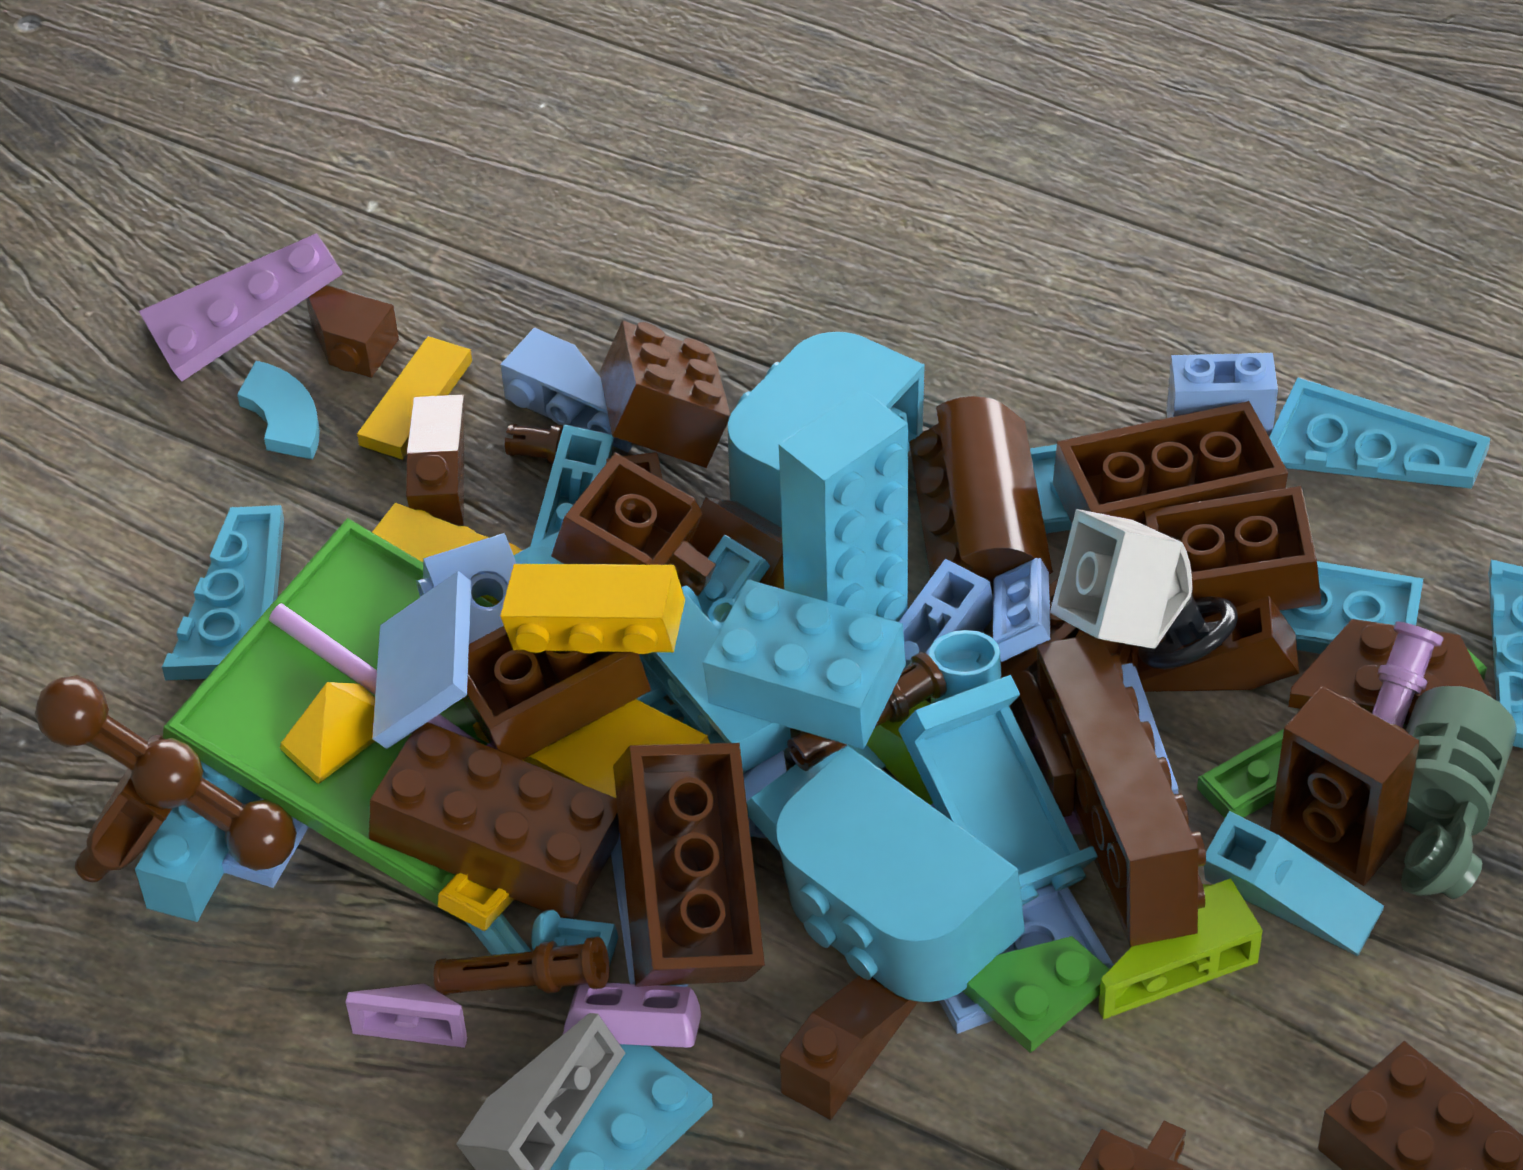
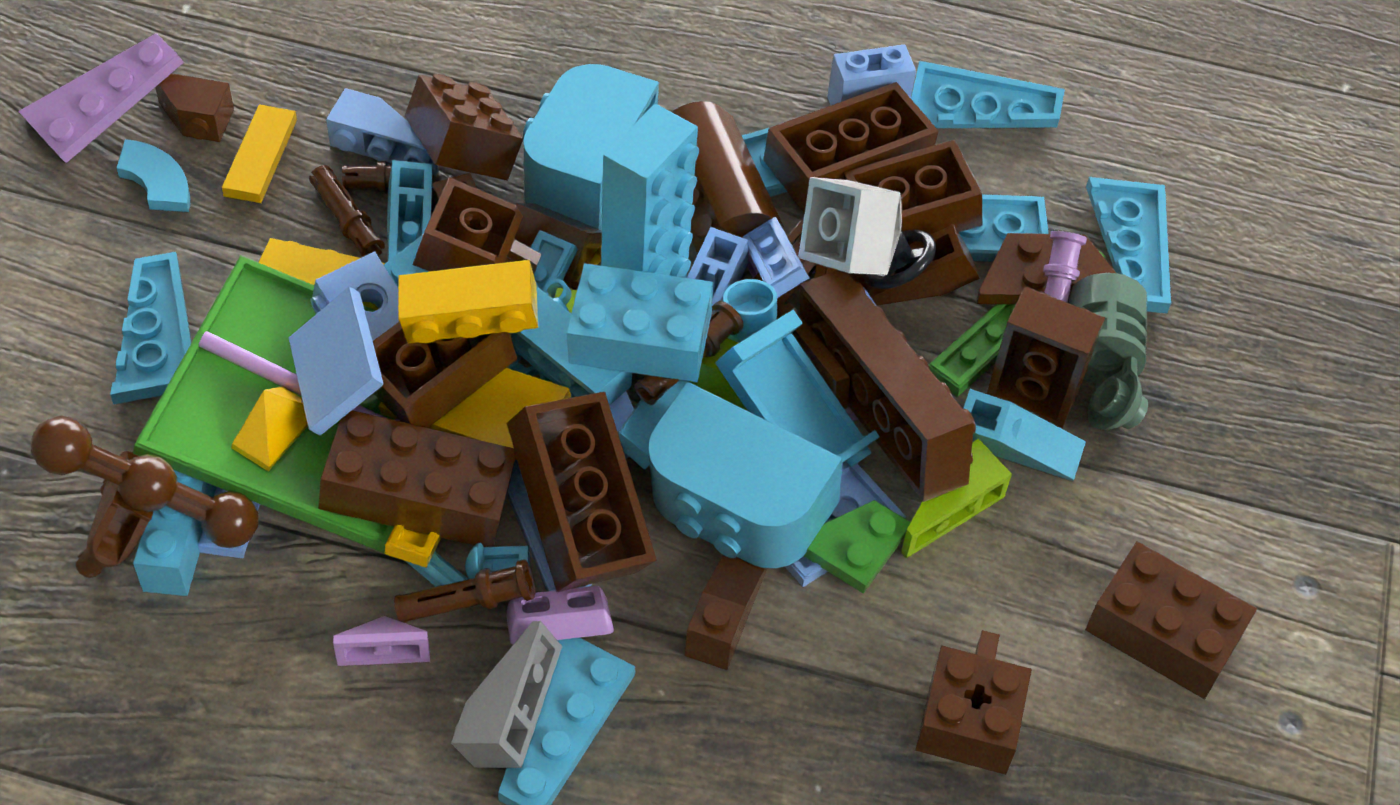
camera: 20 degrees left, 5 degrees up
(437, 457) = (292, 197): reddish brown slope -> none
(506, 496) = (353, 221): none -> reddish brown pin

